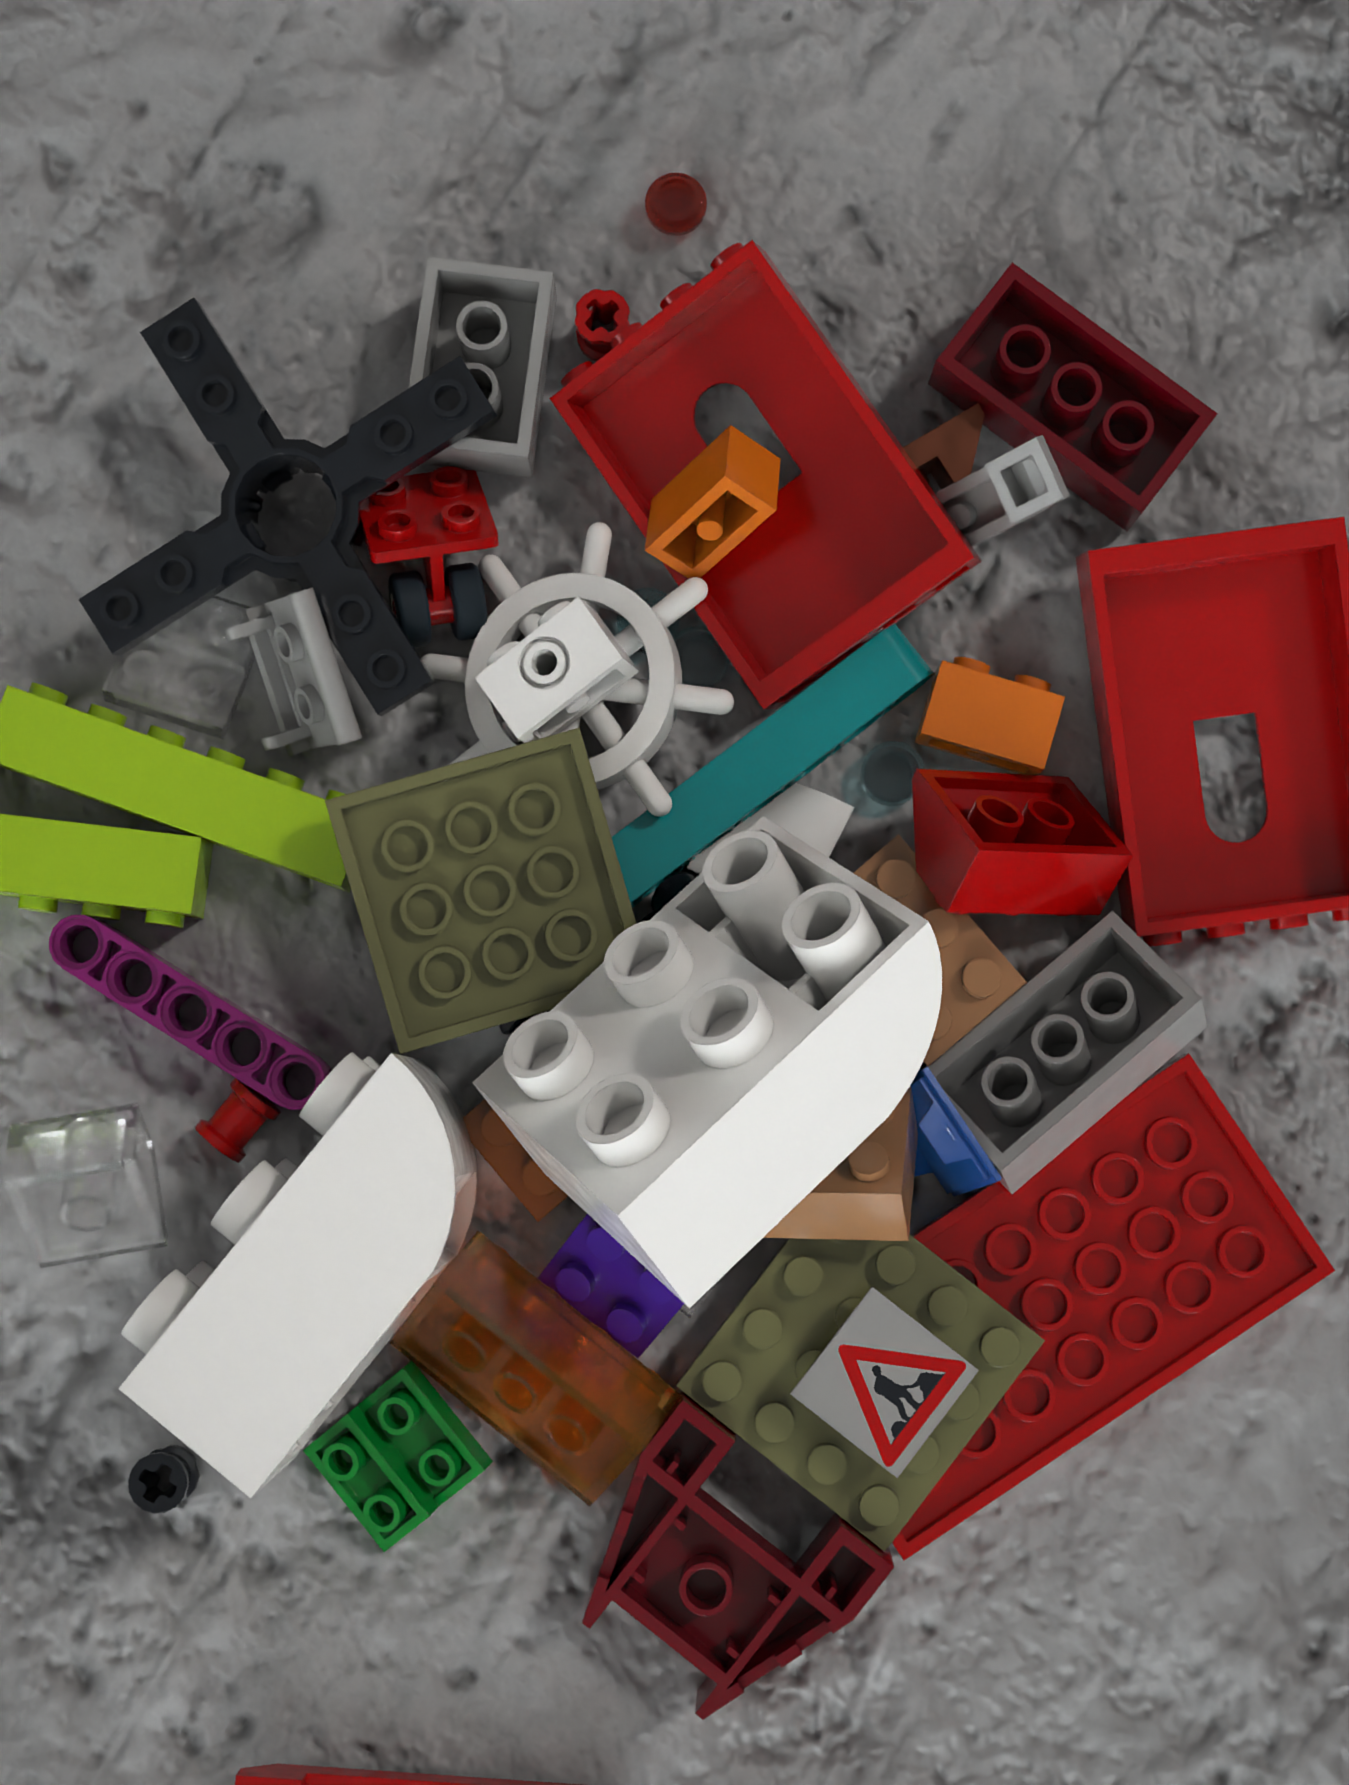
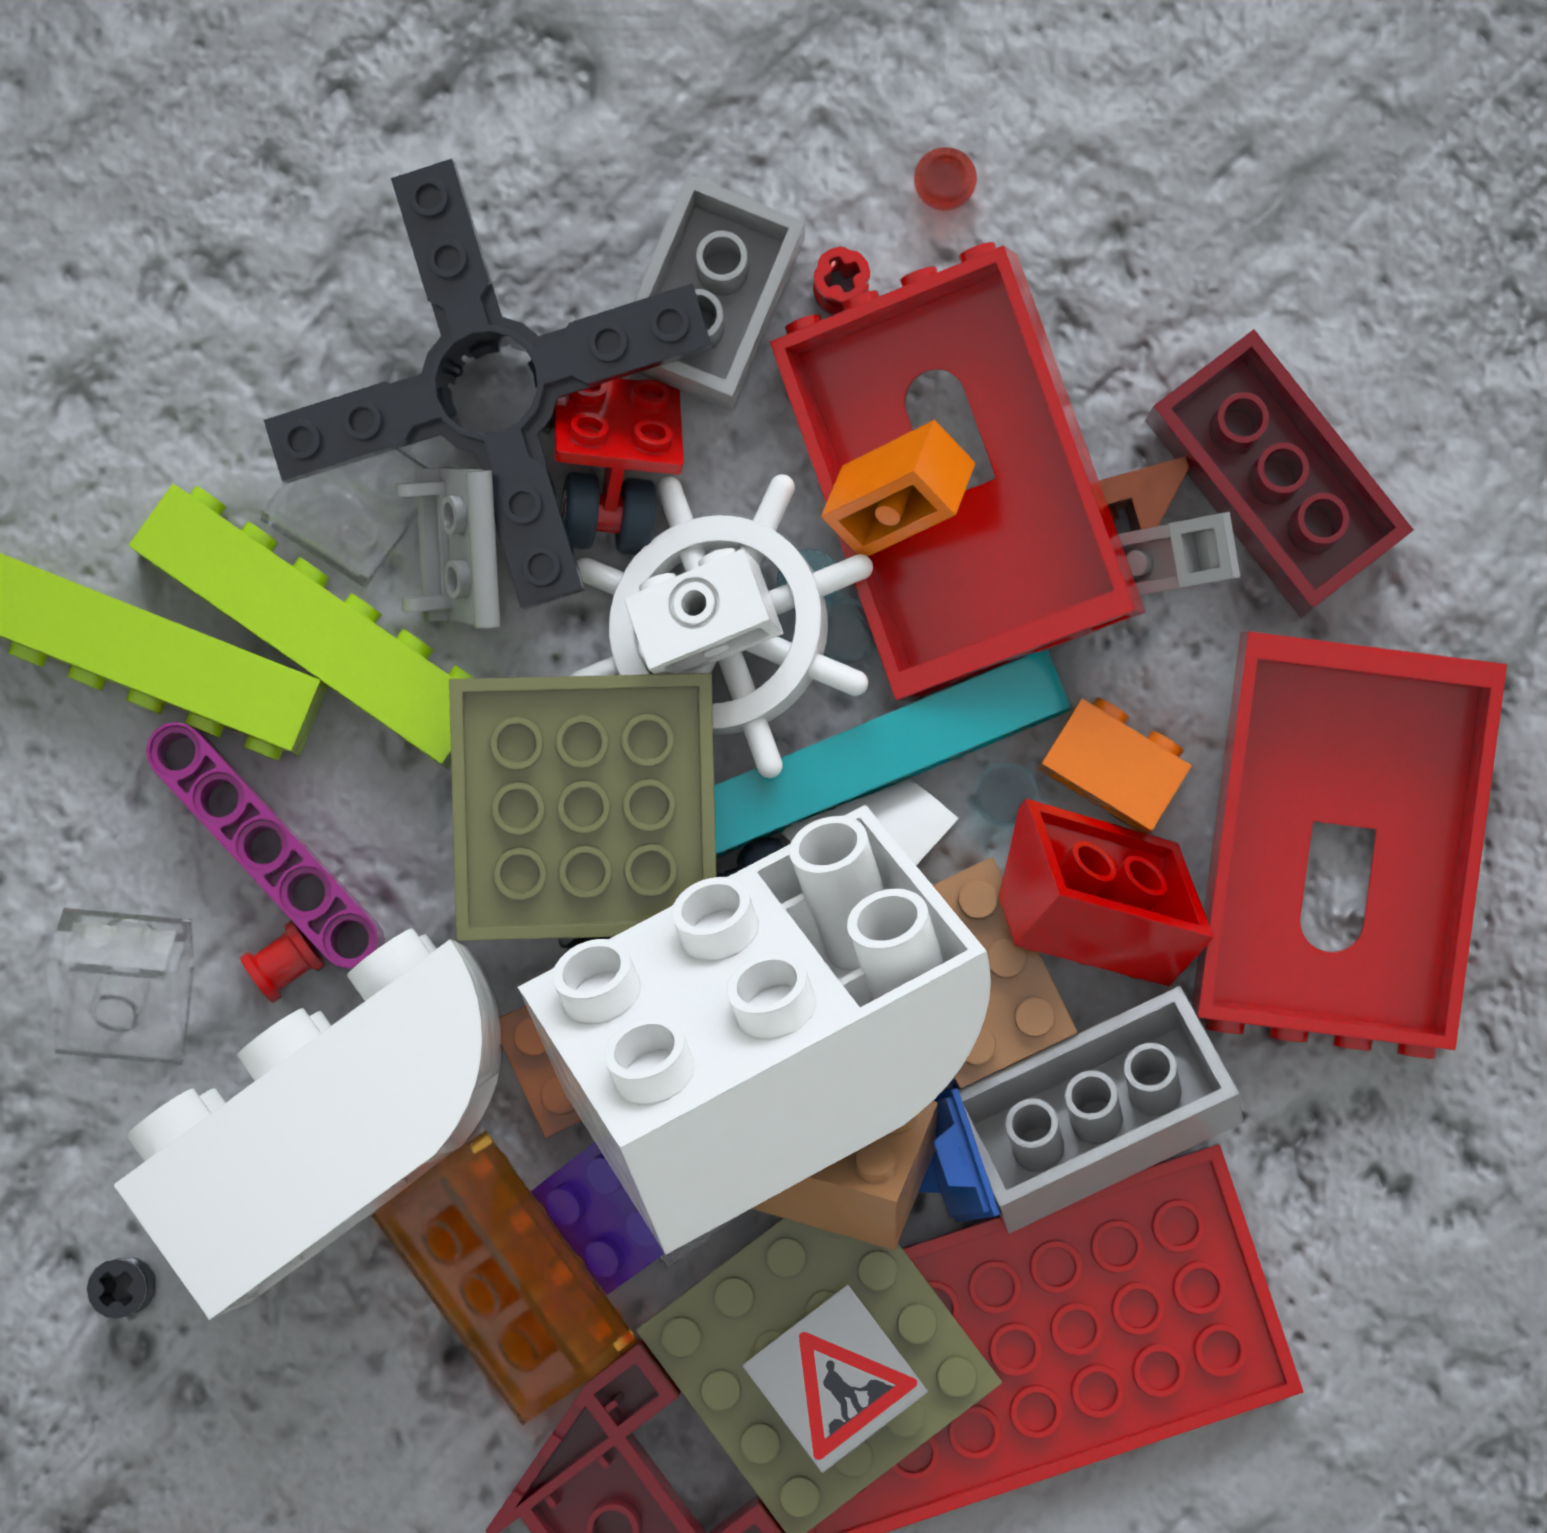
camera: 15 degrees right, 0 degrees up
(398, 1456) = (351, 1326): green slope -> none

